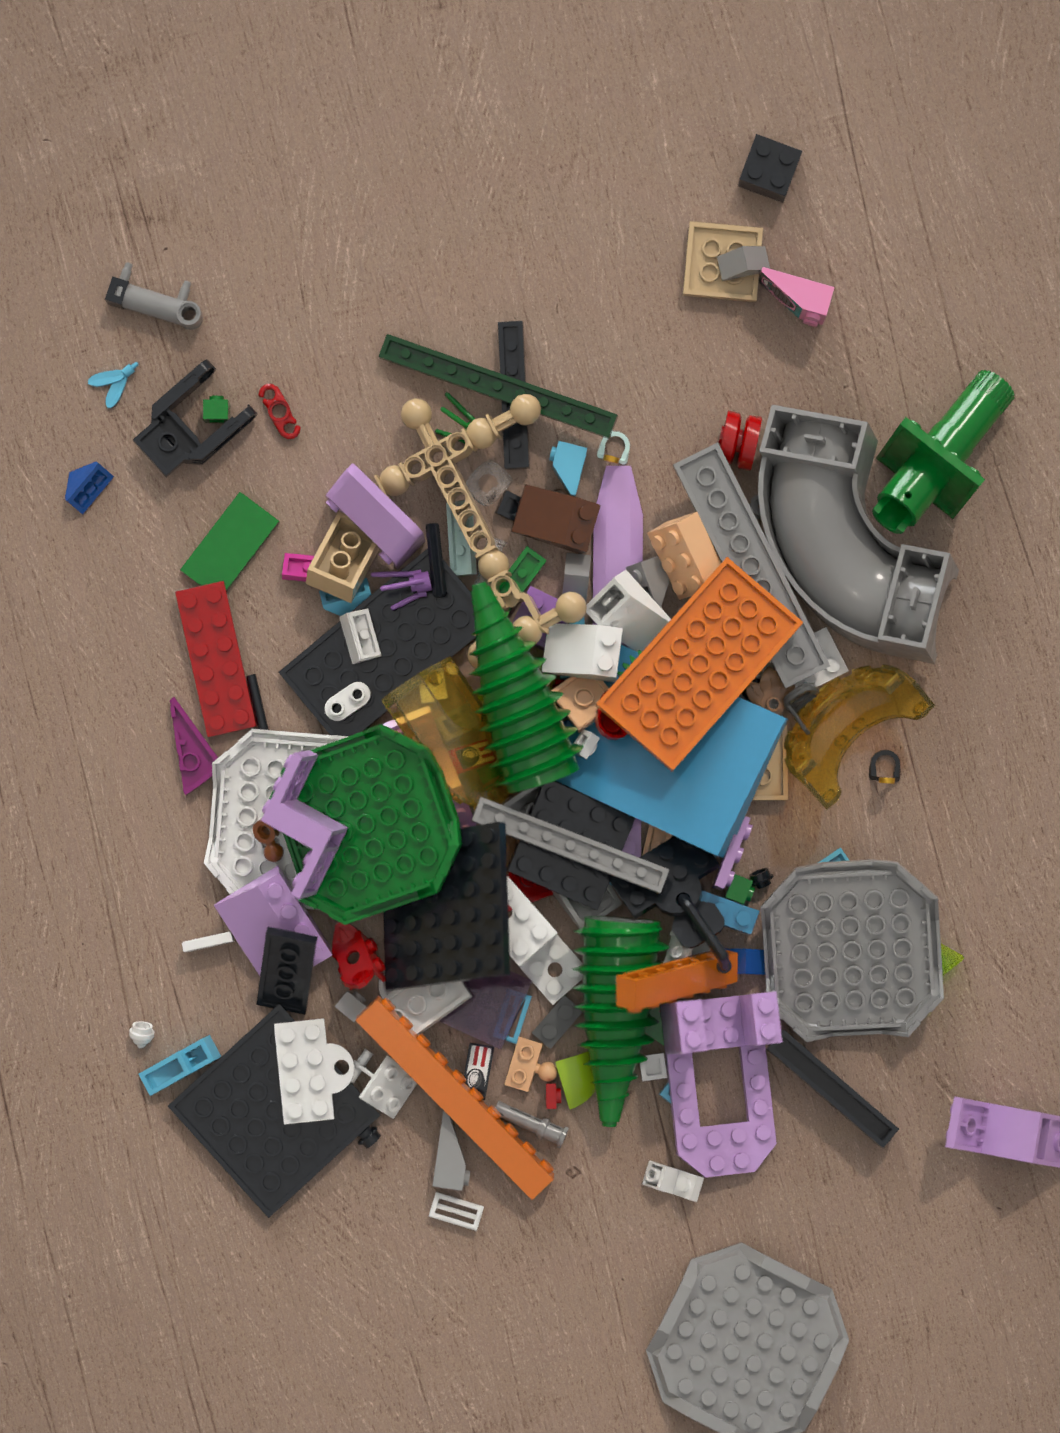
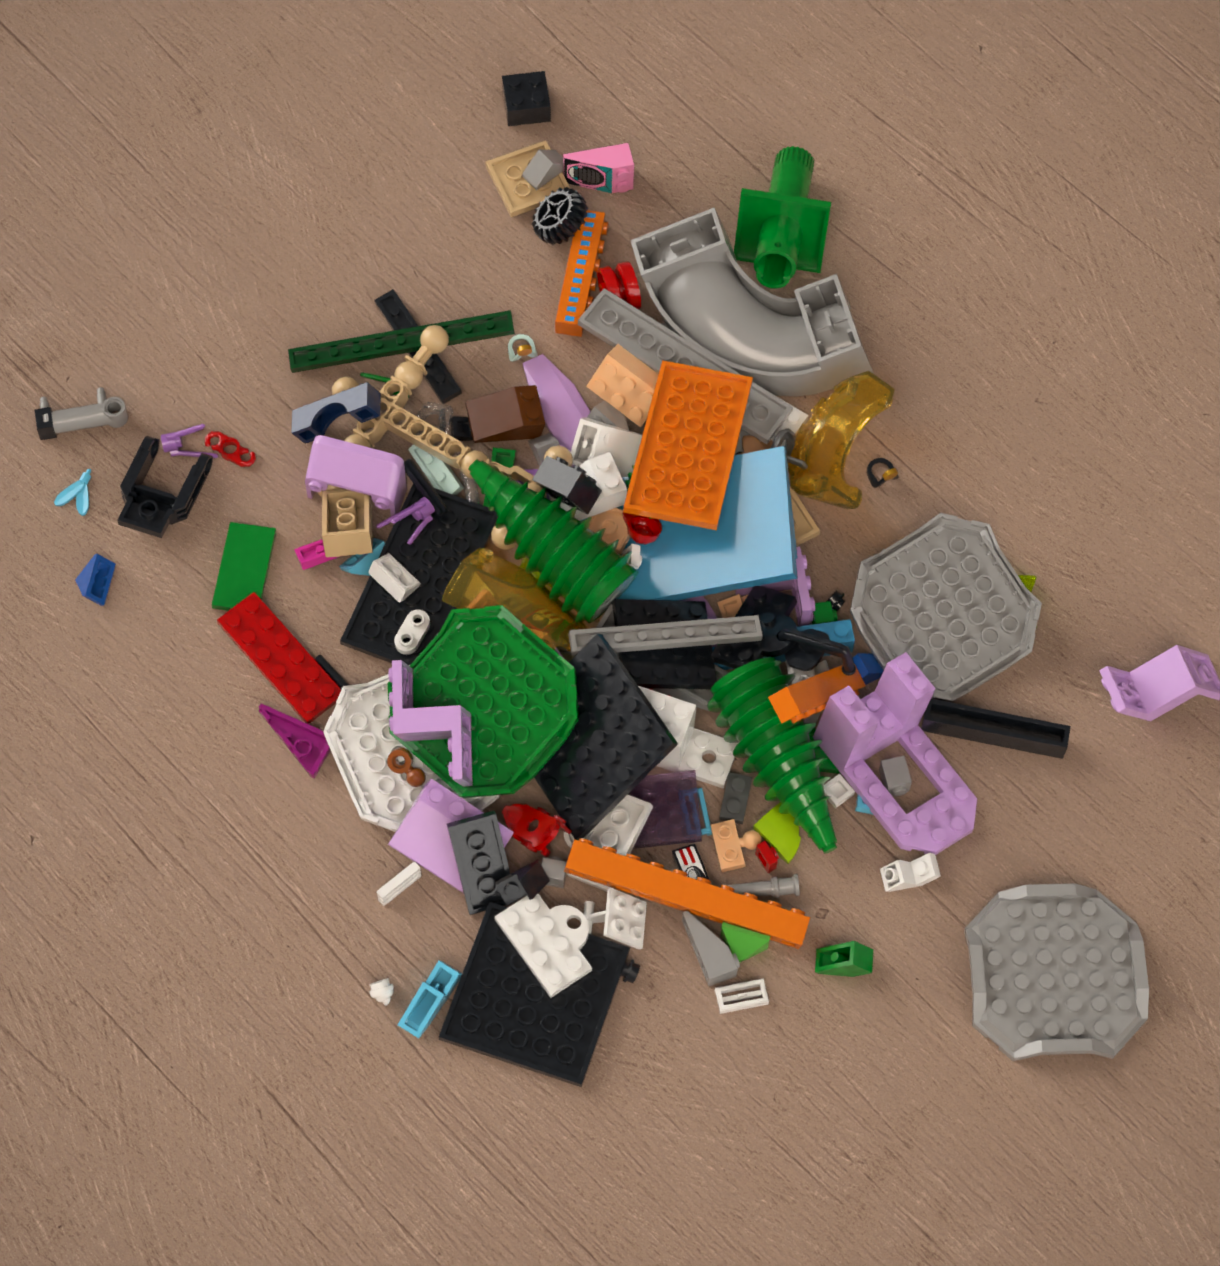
camera: 30 degrees left, 20 degrees down
(216, 409) = (176, 470): green plate -> none
(230, 374) = (172, 442): none -> medium lavender plant
(315, 1007) = (525, 881): none -> black slope
(370, 427) = (313, 419): none -> dark blue arch
(483, 1166) = (743, 941): none -> bright green slope
(560, 646) = (568, 482): none -> brick
(564, 1231) = (844, 959): none -> green slope
(568, 464) = (490, 372): medium azure slope -> none
(713, 1083) = (895, 775): none -> light grey brick
(715, 396) = (580, 273): none -> orange brick
(721, 322) = (559, 216): none -> black gear

